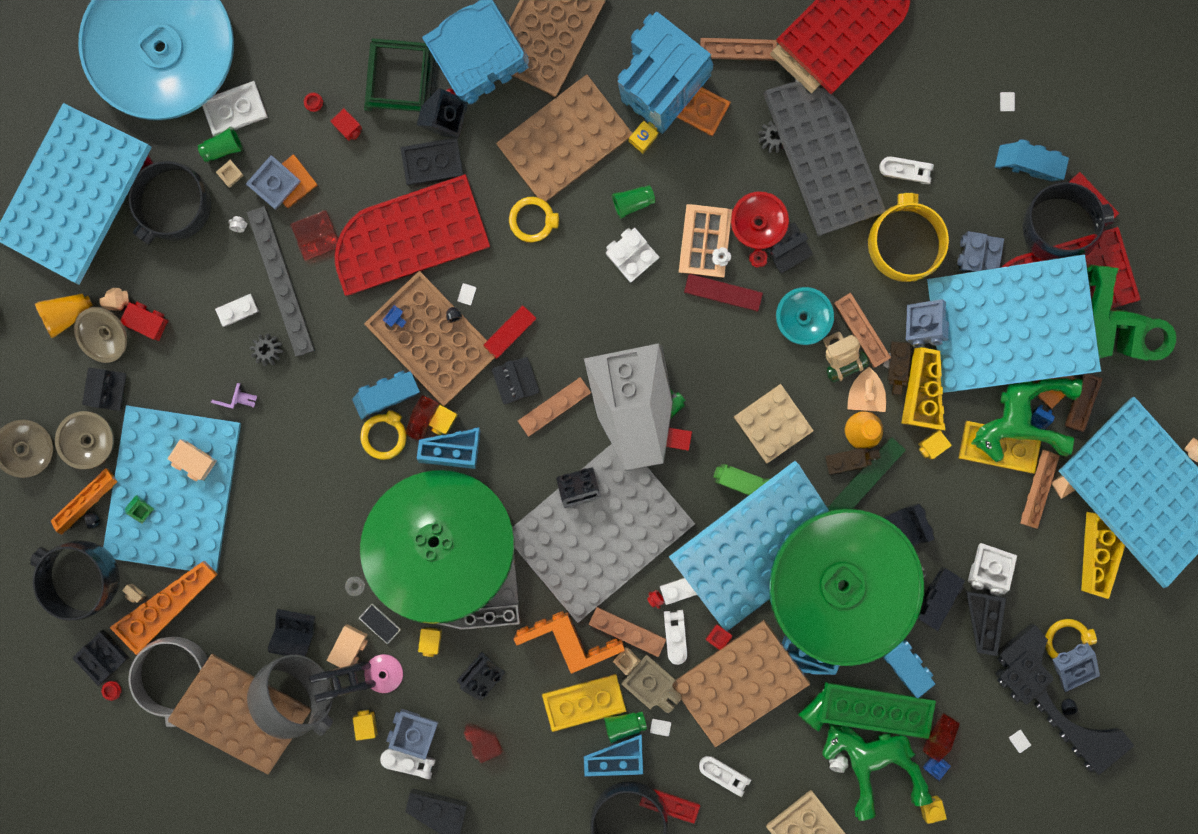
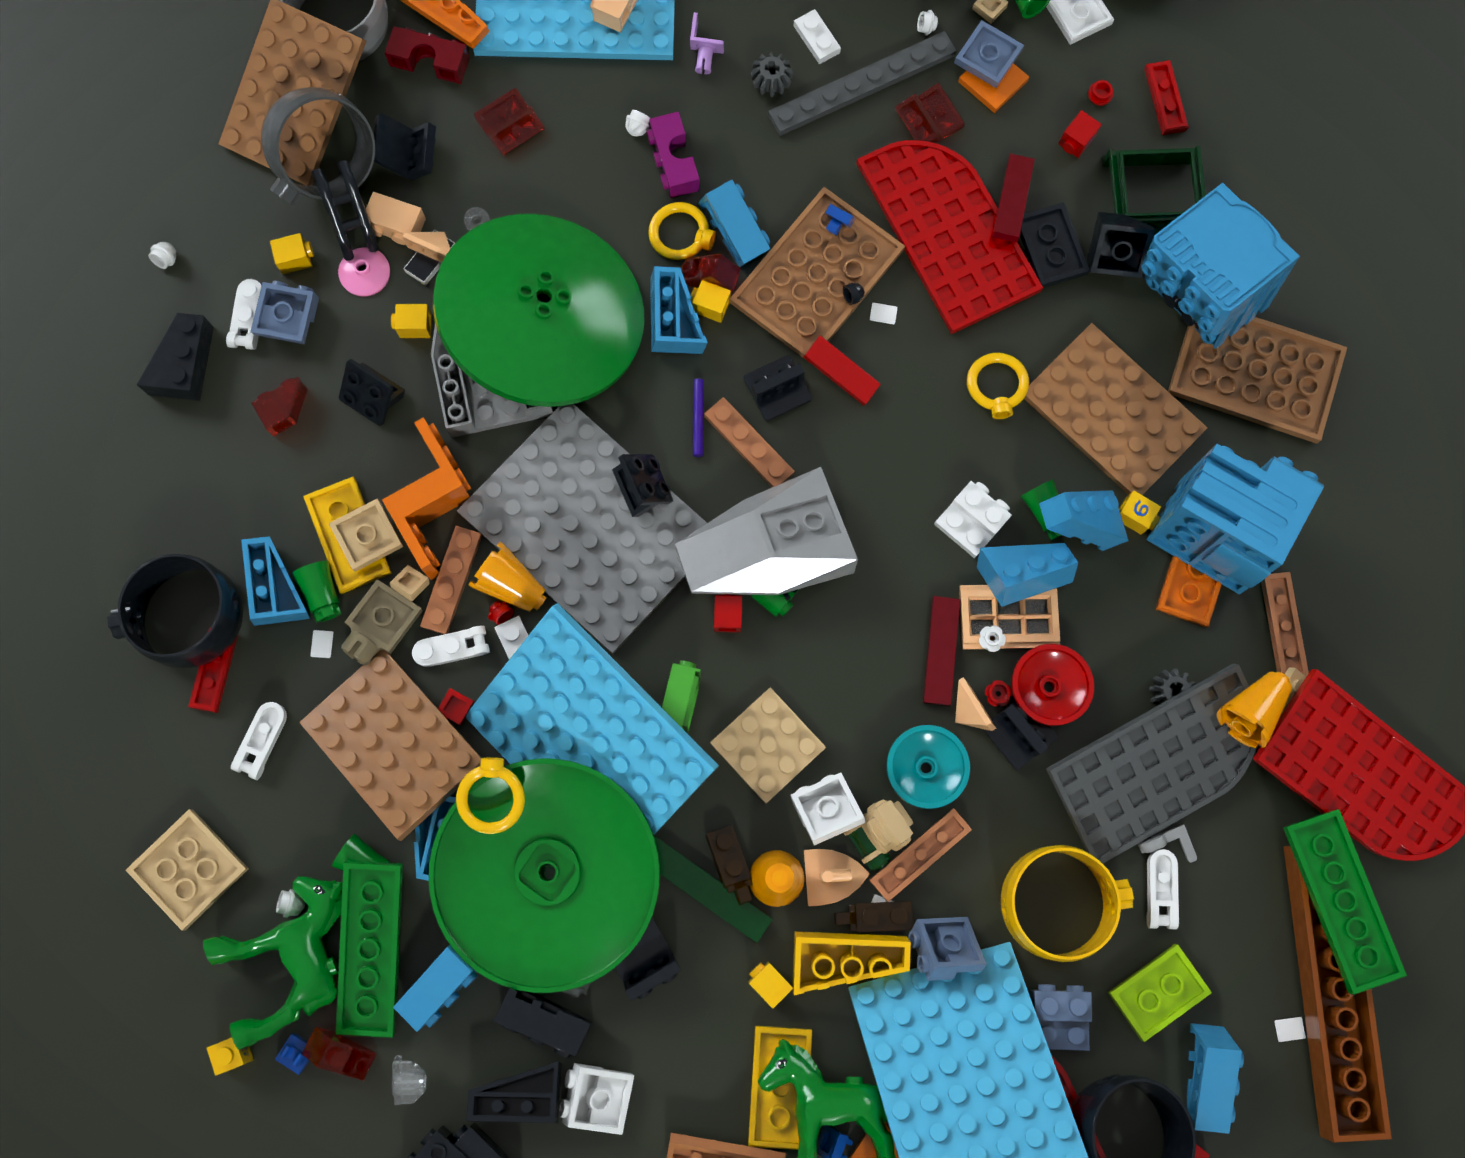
camera: 80 degrees right, 10 degrees down
(207, 624) = (408, 47): none -> dark red arch
(278, 553) = (508, 121): none -> clear red slope
(293, 457) = (637, 123): none -> white plate
(322, 53) = (1166, 97): none -> red tile
(340, 431) = (678, 174): none -> magenta arch
(352, 821) = (162, 254): none -> white plate
(372, 620) = (428, 243): none -> light nougat slope
(392, 184) = (1013, 198): none -> dark red tile
(529, 441) = (698, 417): none -> dark purple bar
(589, 688) = (365, 535): none -> tan plate
(634, 591) = (508, 580): none -> light orange cone
(645, 174) = (1086, 515): none -> dark azure wedge
(676, 224) = (1025, 570): none -> dark azure wedge
(767, 279) = (970, 710): none -> light nougat slope
(774, 615) = (490, 768): none -> yellow piece
(798, 84) = (1256, 710): none -> light orange cone
(824, 389) = (827, 808): none -> white plate
(873, 164) = (1160, 840): none -> light grey piece
(933, 52) = (1344, 902): none -> green plate
(965, 693) = (408, 1081): none -> clear piece
(973, 184) = (1159, 992): none -> lime plate
(987, 67) = (1339, 1031): none -> dark orange brick

